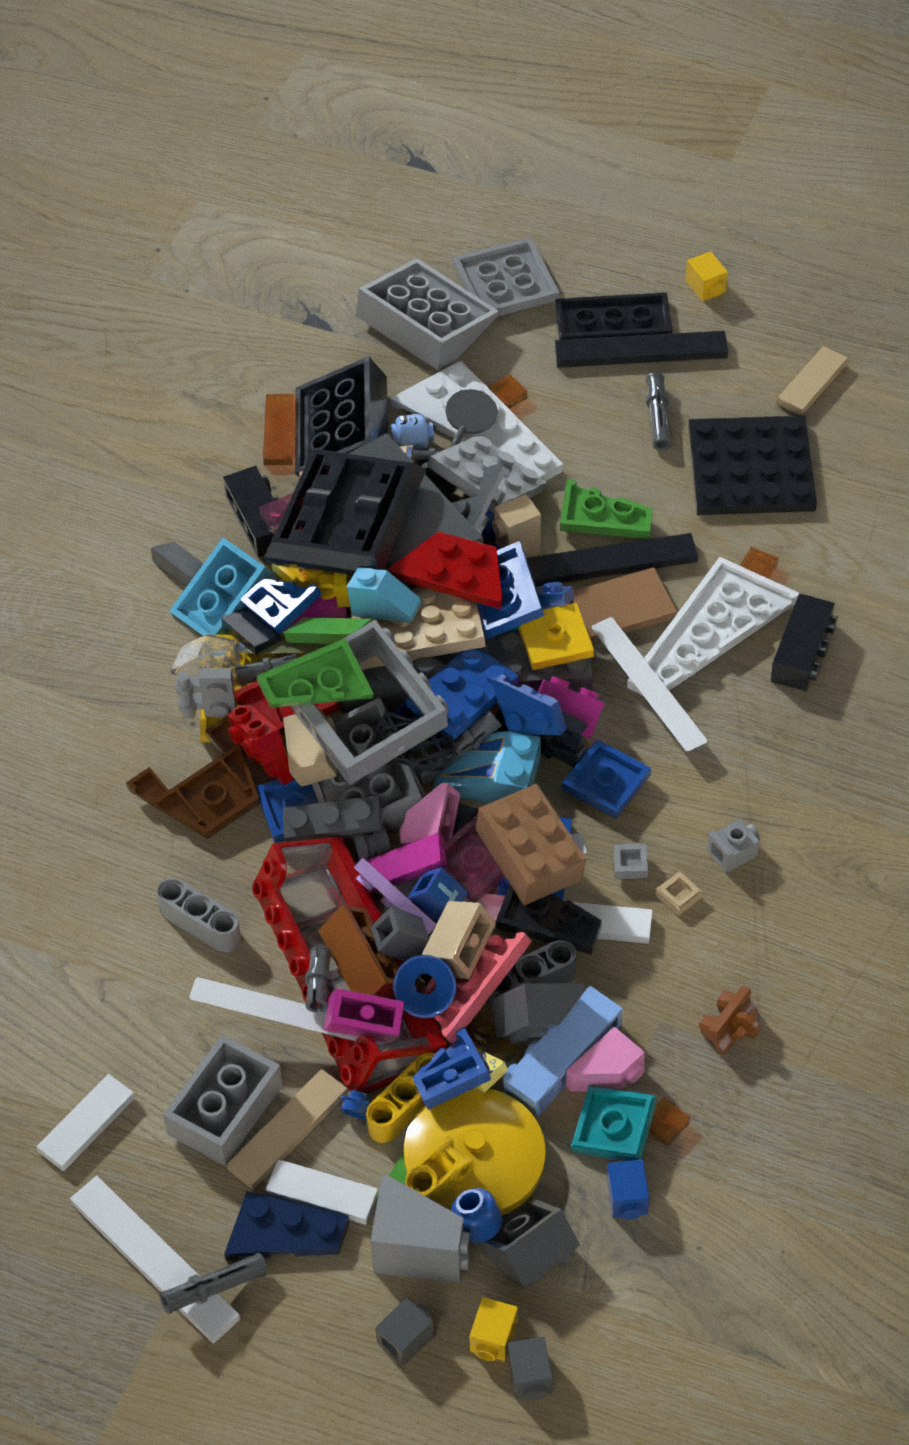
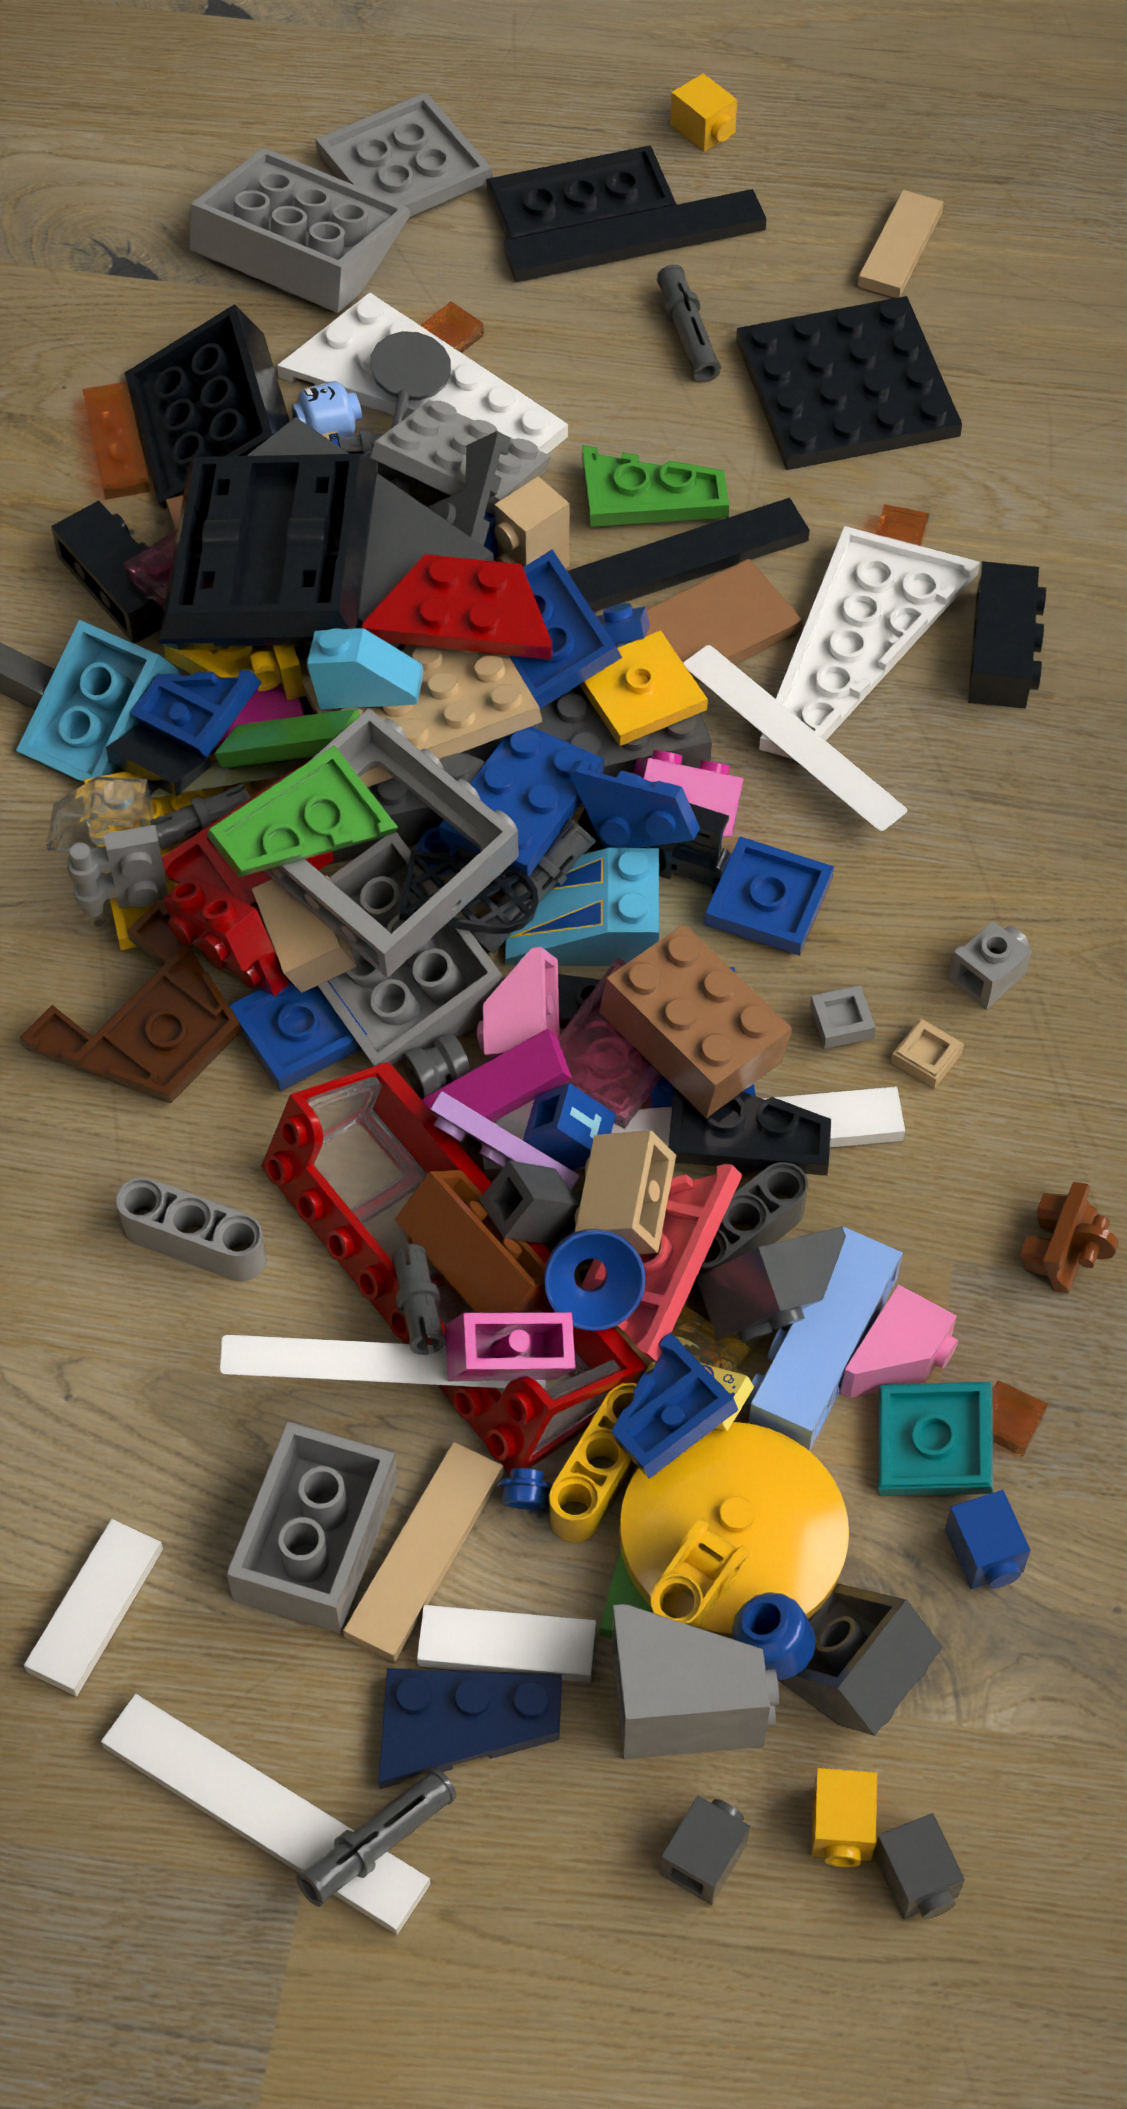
camera: 15 degrees left, 5 degrees up
(332, 819) = (368, 1036): dark grey plate -> none

